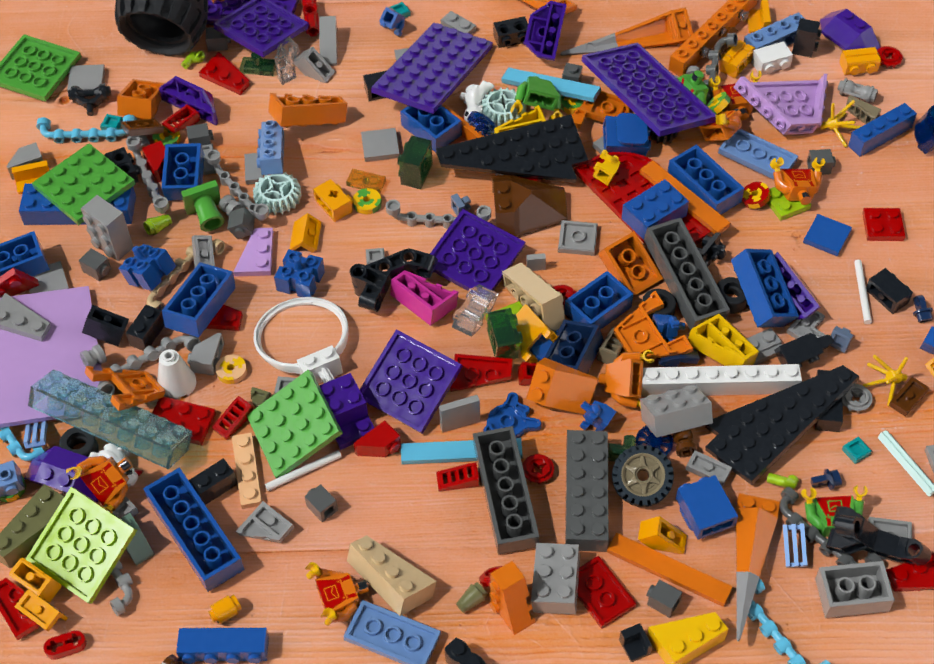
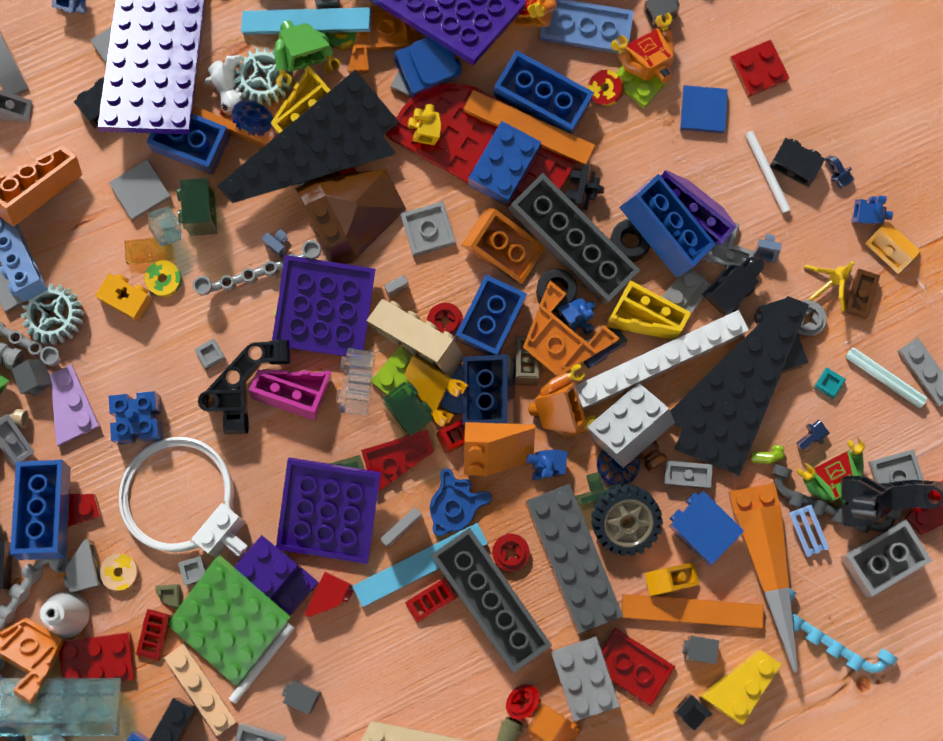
camera: 25 degrees left, 25 degrees up
(306, 233) = (114, 356): light orange panel -> none
(385, 166) = (164, 226): none -> clear light blue brick

